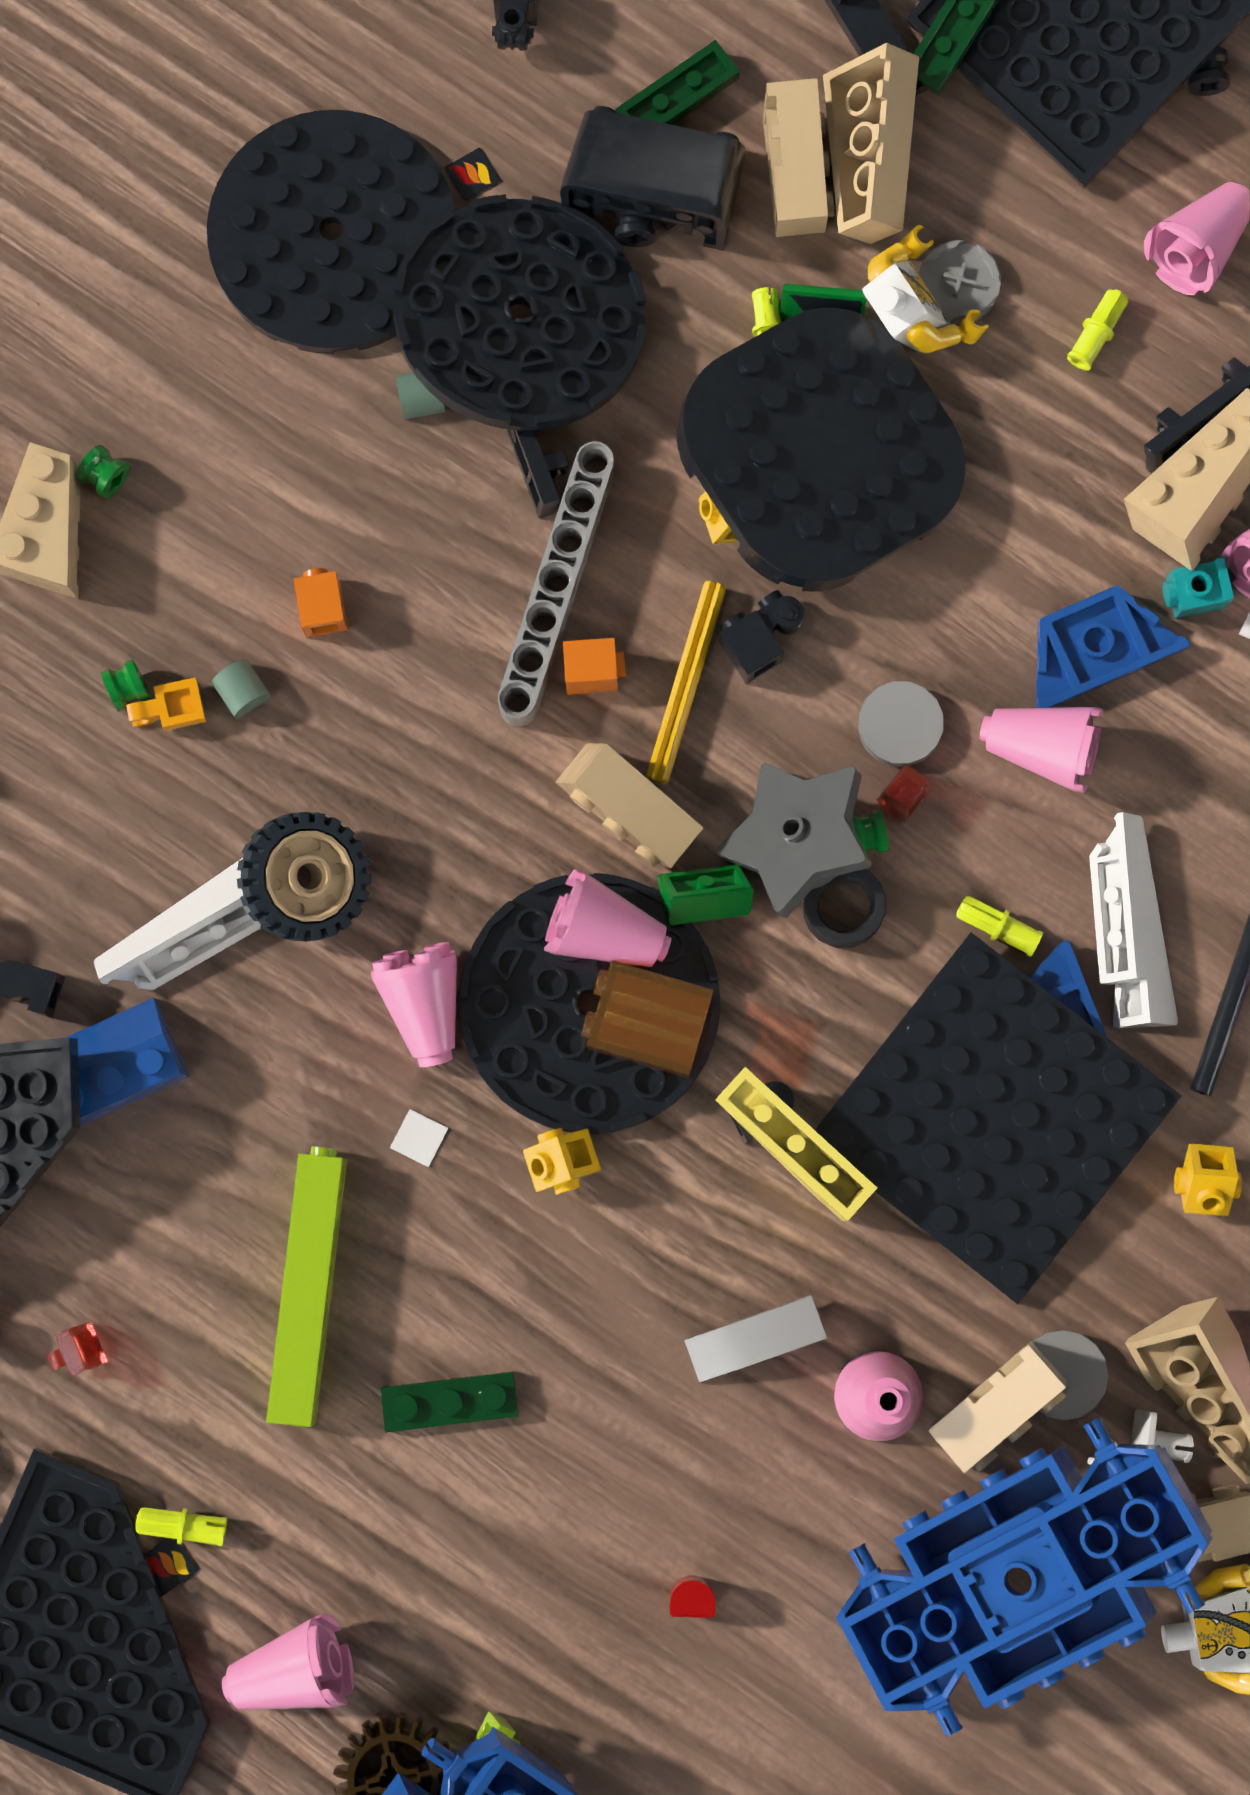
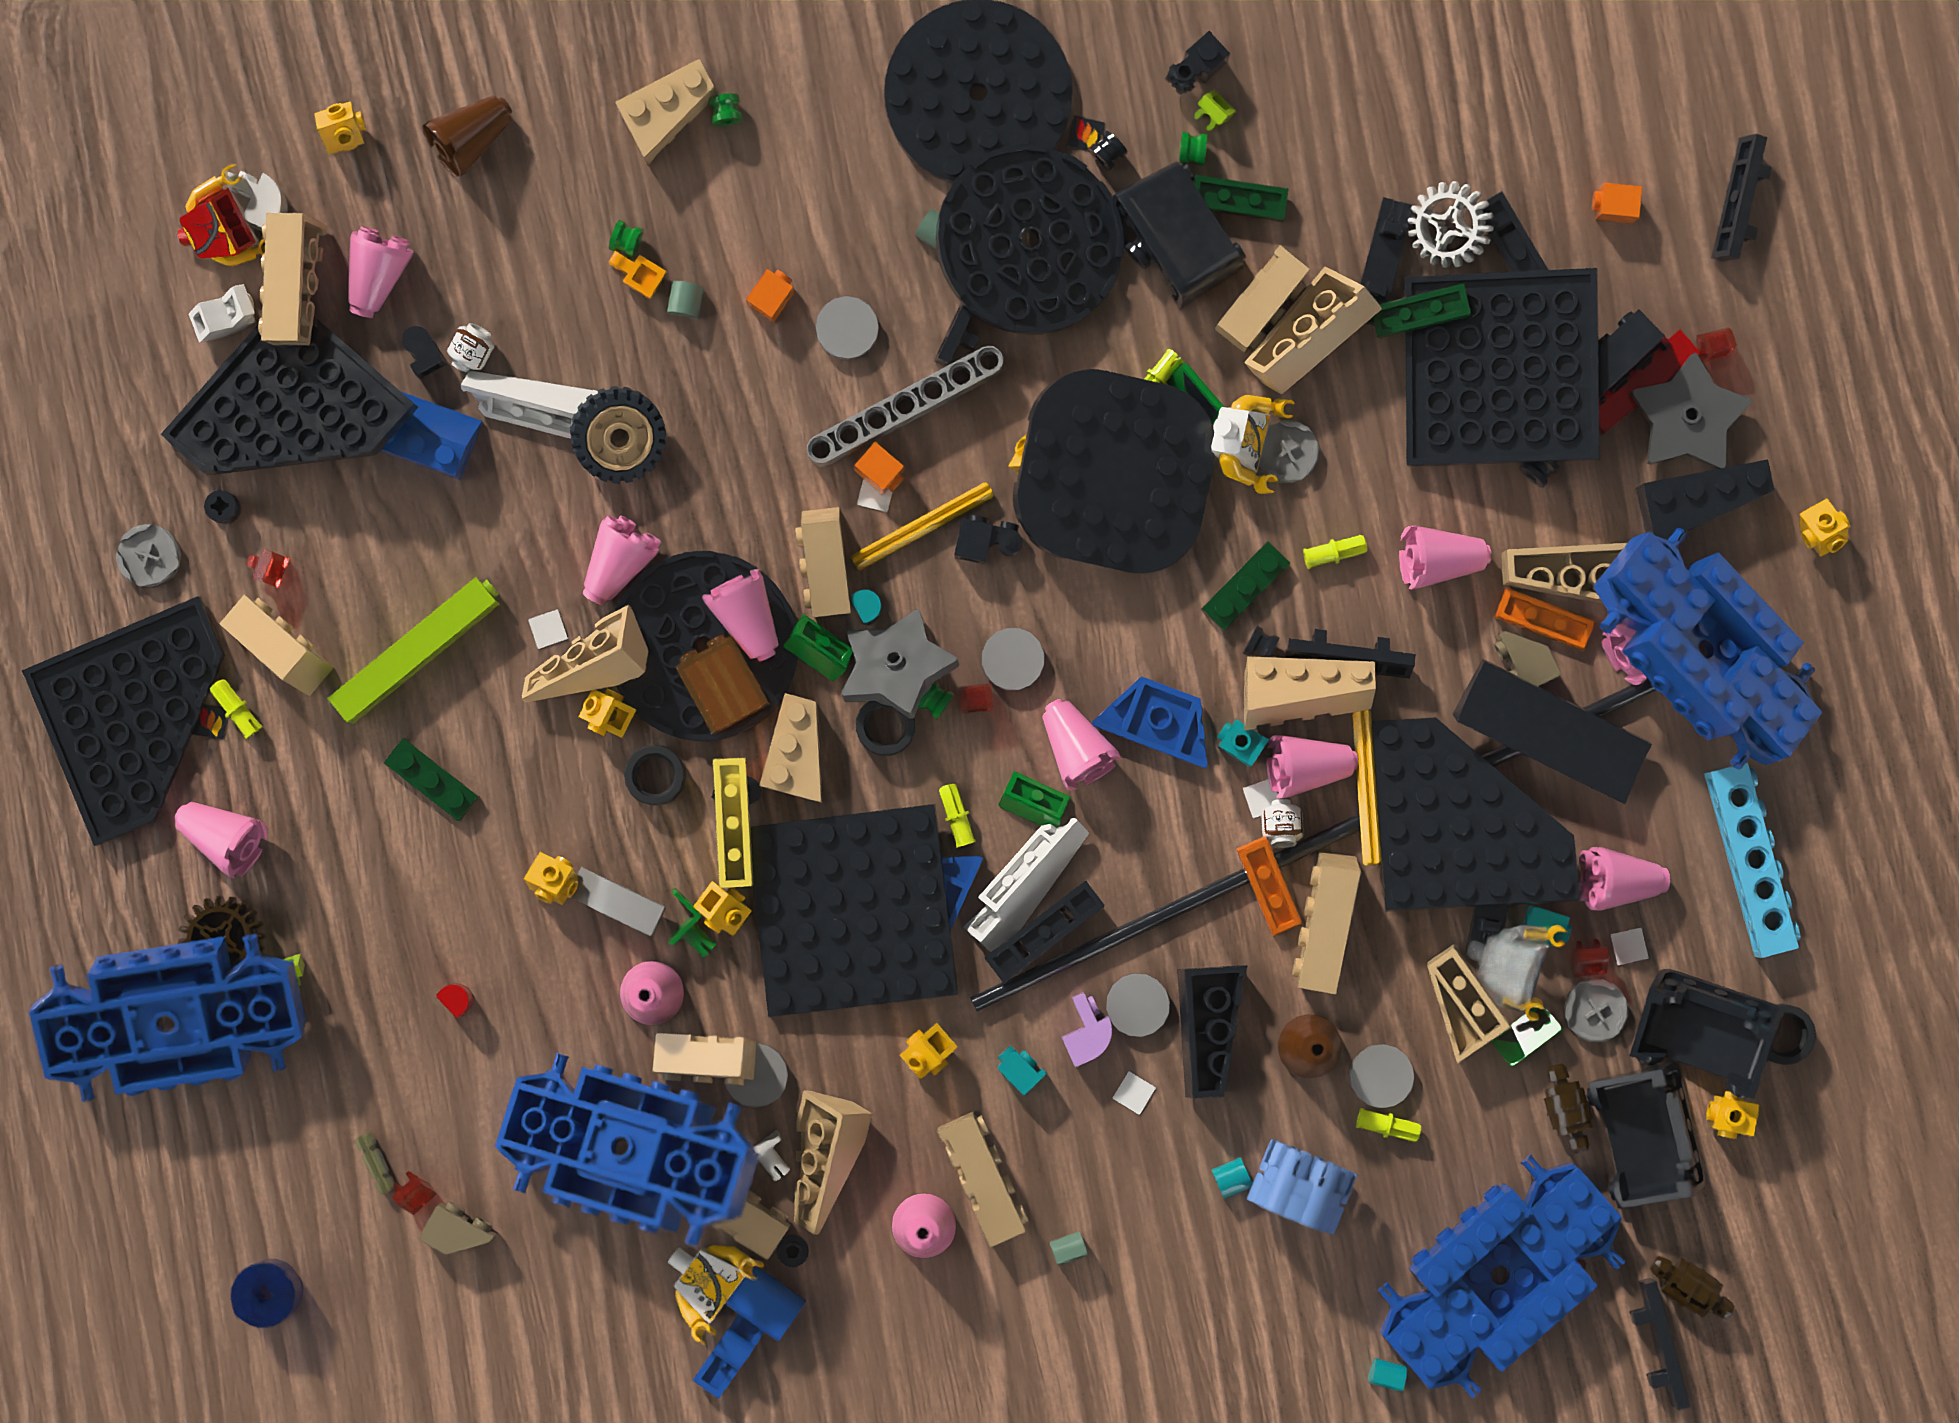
camera: 40 degrees right, 5 degrees up
(73, 936) = (470, 347): none -> white head
(161, 1420) = (276, 644): none -> tan wedge
(425, 565) = (847, 328): none -> light grey tile
(504, 1112) = (599, 661): none -> tan wedge
(509, 165) = (1108, 150): none -> black wheel
(572, 32) = (1216, 108): none -> lime tile
(588, 88) = (1193, 148): none -> green wheel
(610, 704) = (873, 499): none -> white sticker
(665, 1143) = (631, 777): none -> black tyre
(670, 1380) = (552, 879): none -> yellow brick
(711, 807) = (867, 605): none -> teal brick
(783, 1015) = (794, 752): none -> tan wedge
(855, 1295) = (689, 930): none -> green bracket
(868, 1240) = (727, 913): none -> yellow brick
(1048, 442) = (1245, 586): none -> dark green plate
(1057, 839) = (1034, 800): none -> green slope
(1119, 479) = (1260, 644): none -> black wheel
(1200, 951) = (1044, 931): none -> black hinge

